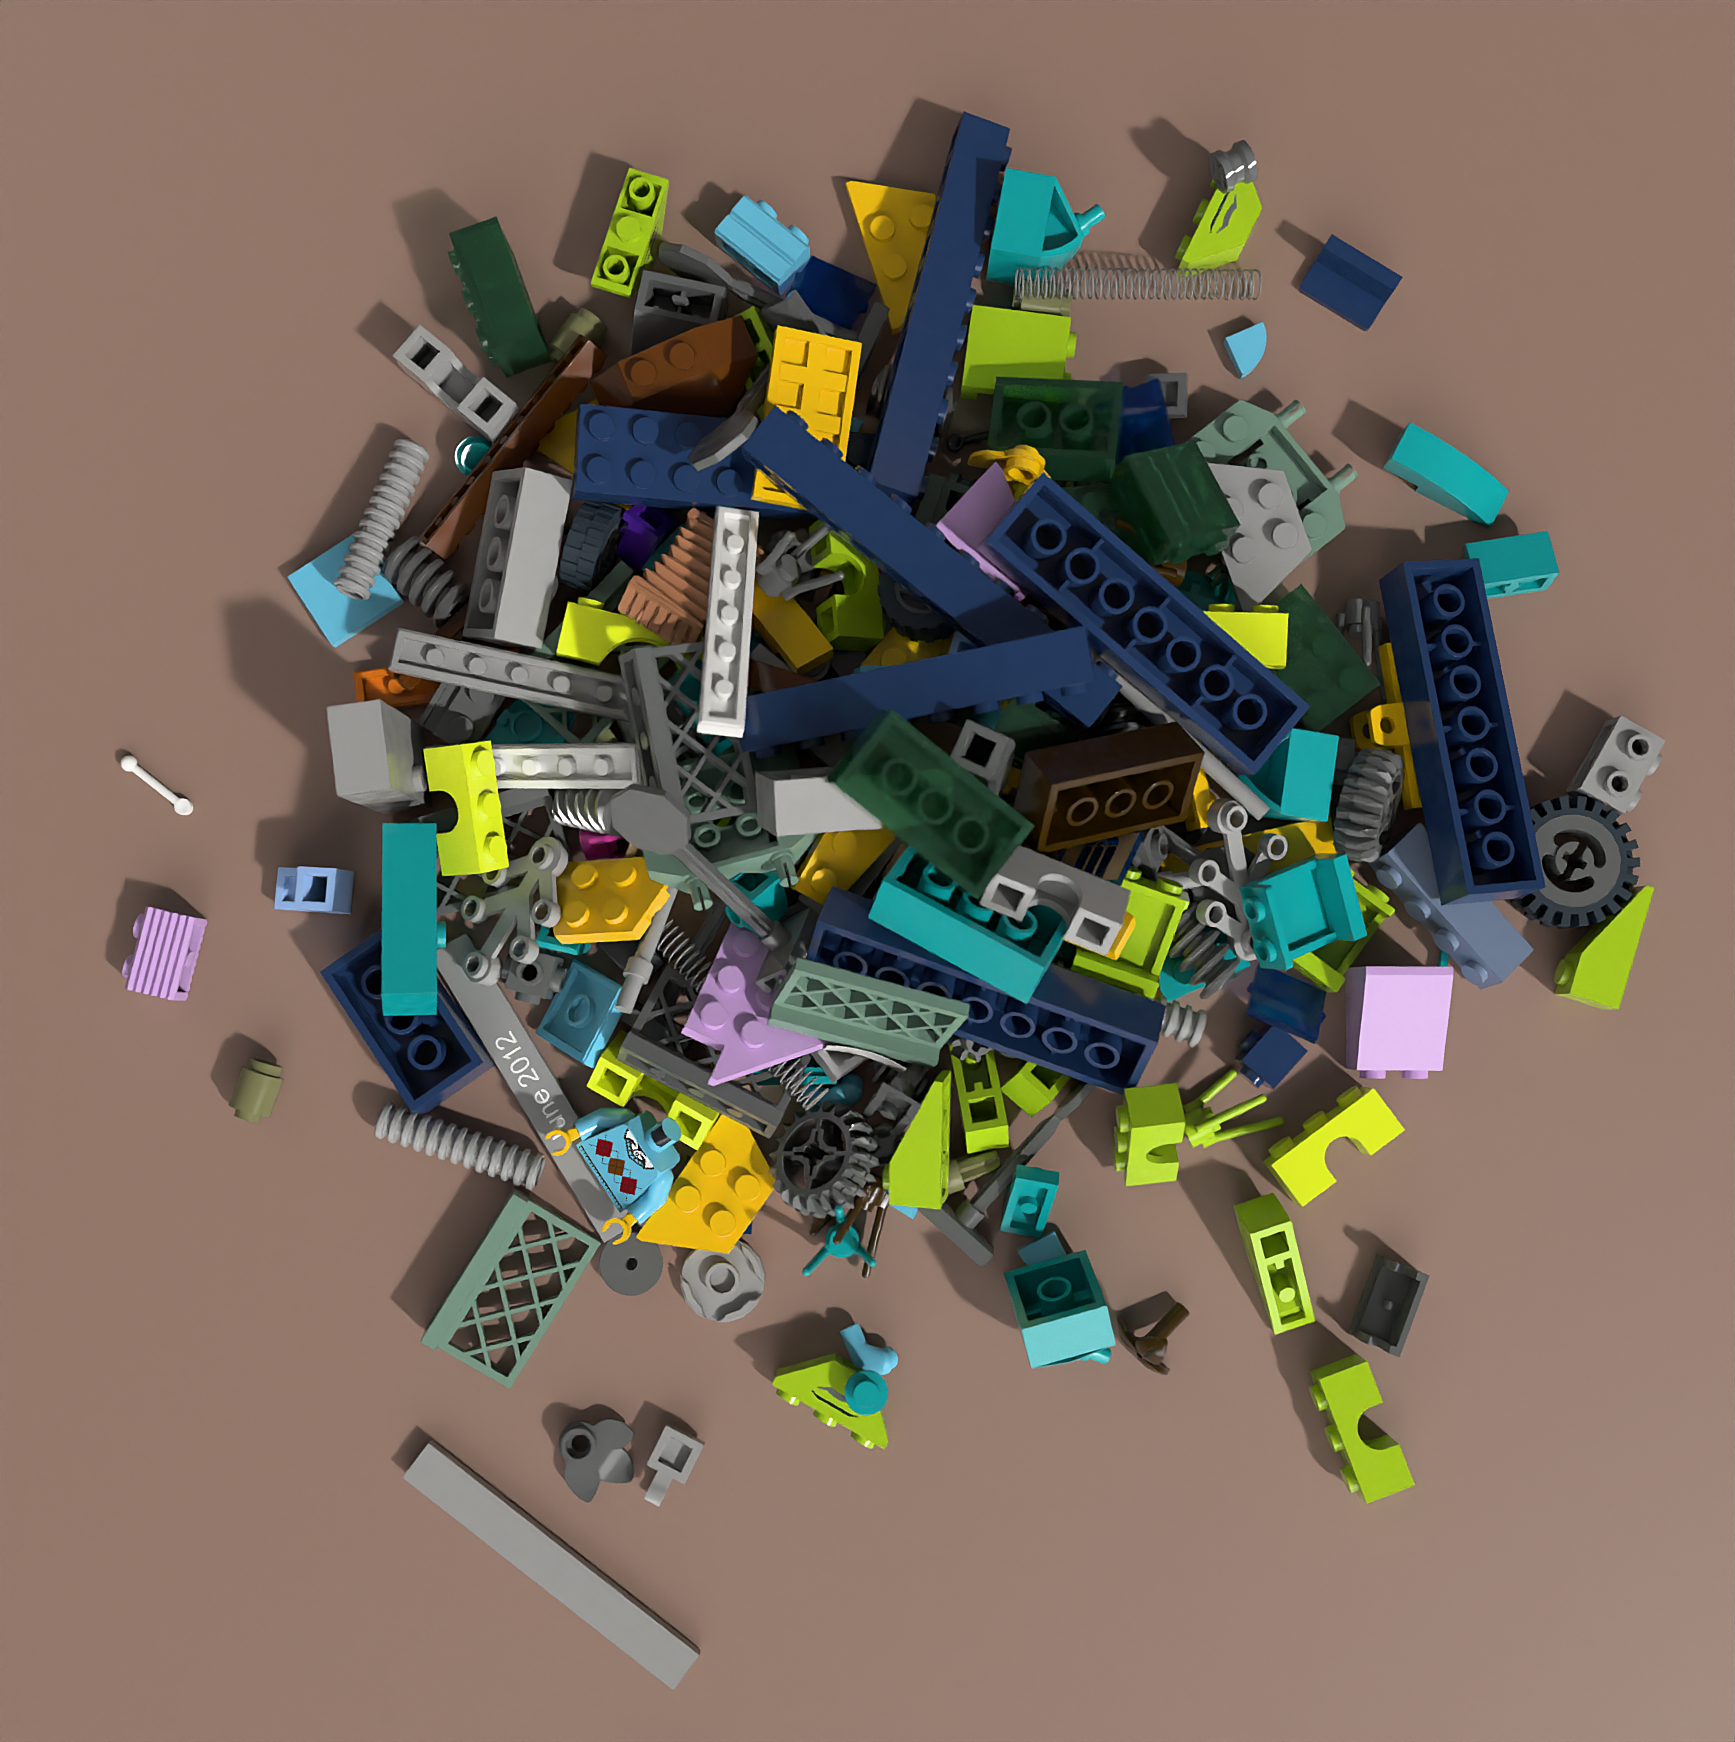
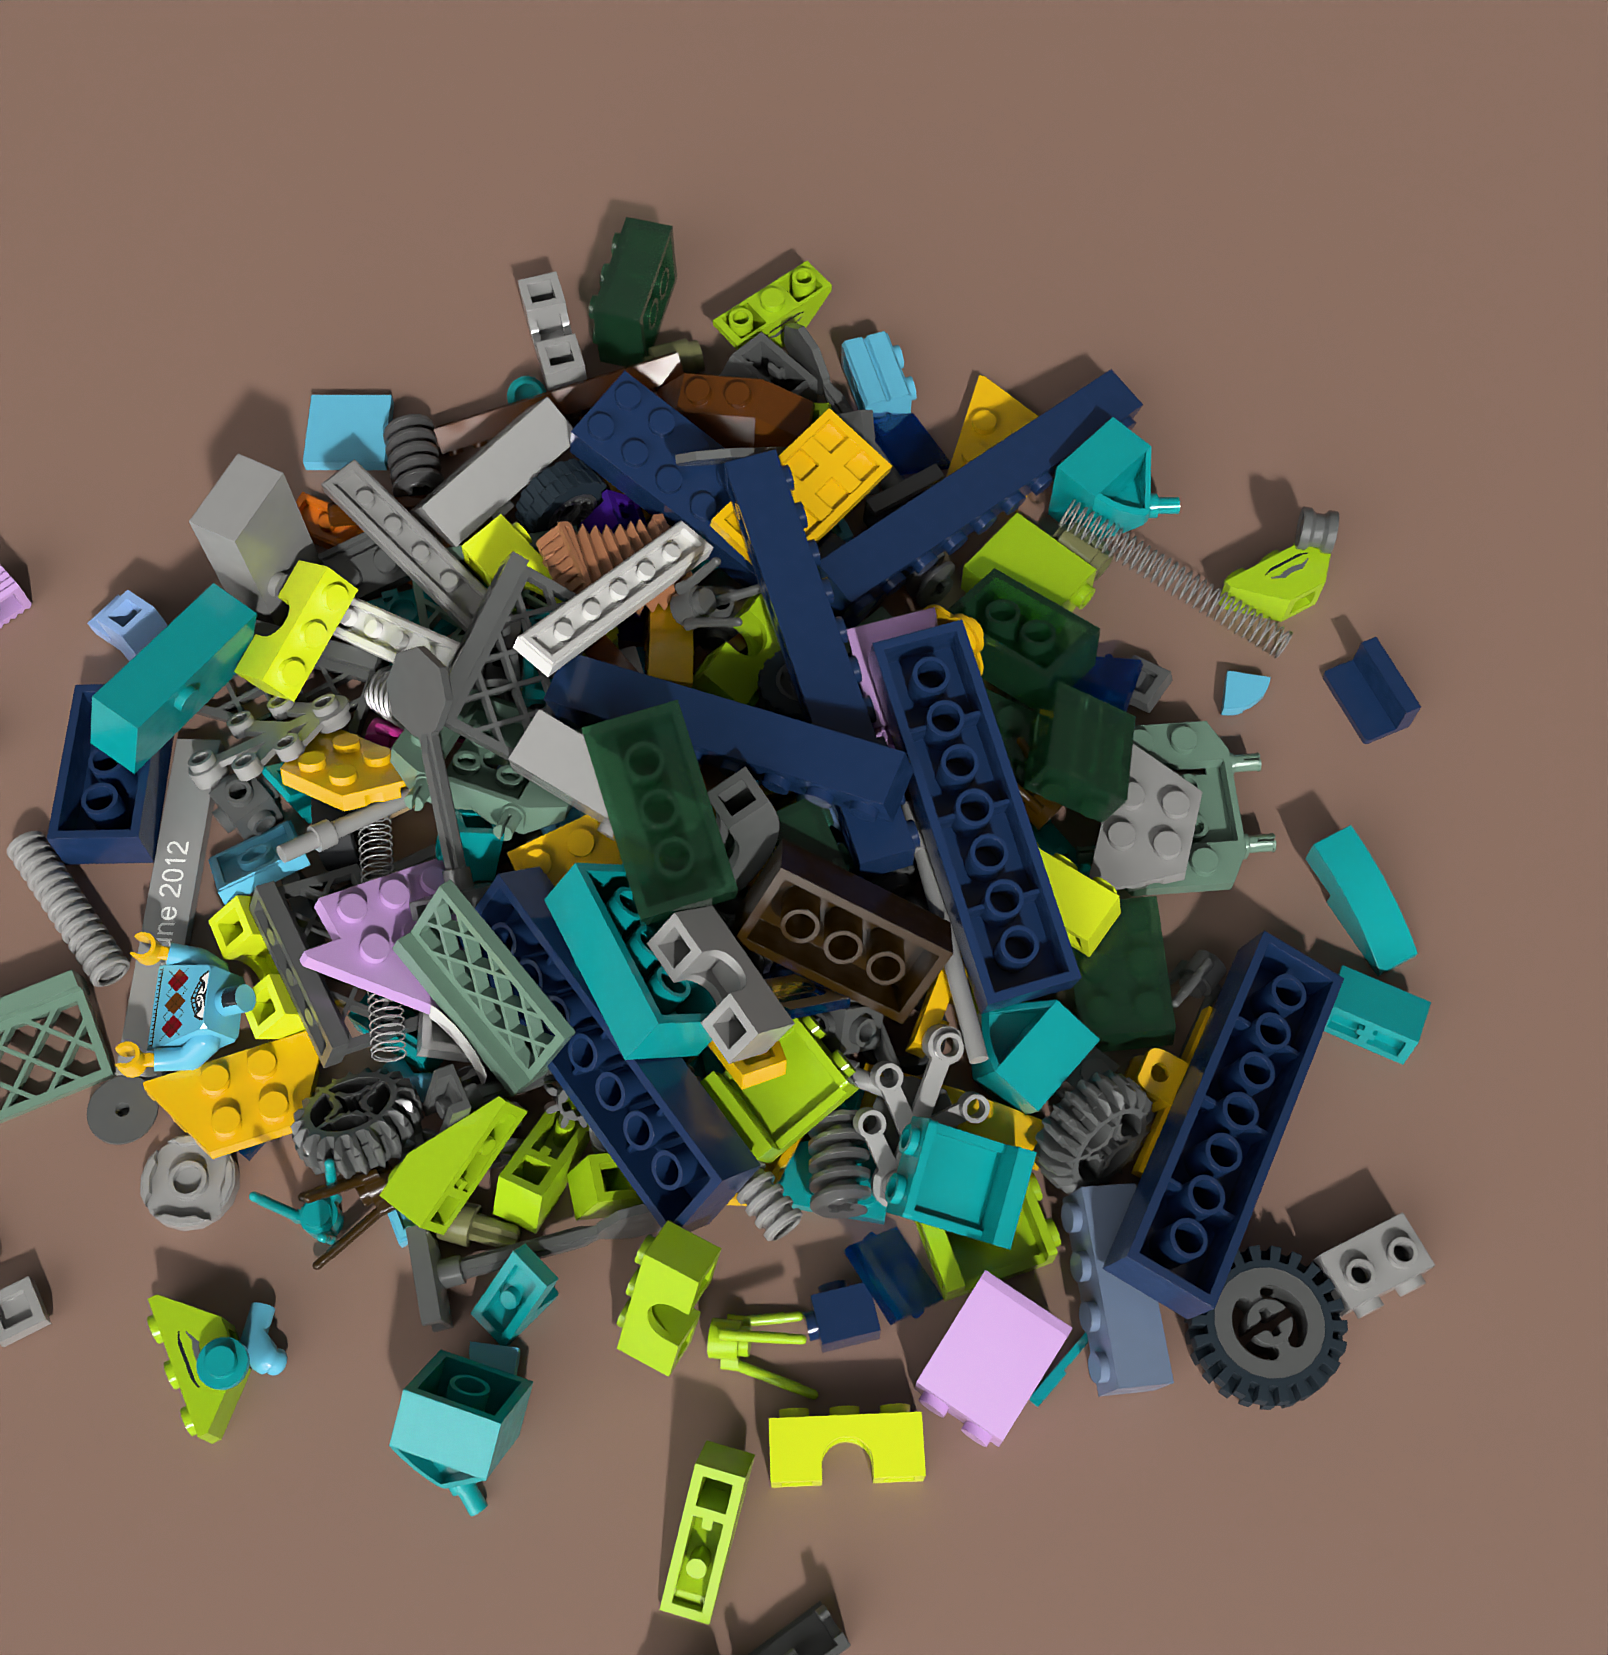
camera: 30 degrees right, 20 degrees down
(181, 806) = (88, 509): white hinge -> none
(381, 519) = (415, 393): light grey piece -> none
(1153, 1346) = (524, 1520): dark brown plant -> none
(1602, 959) = (1243, 1445): lime slope -> none

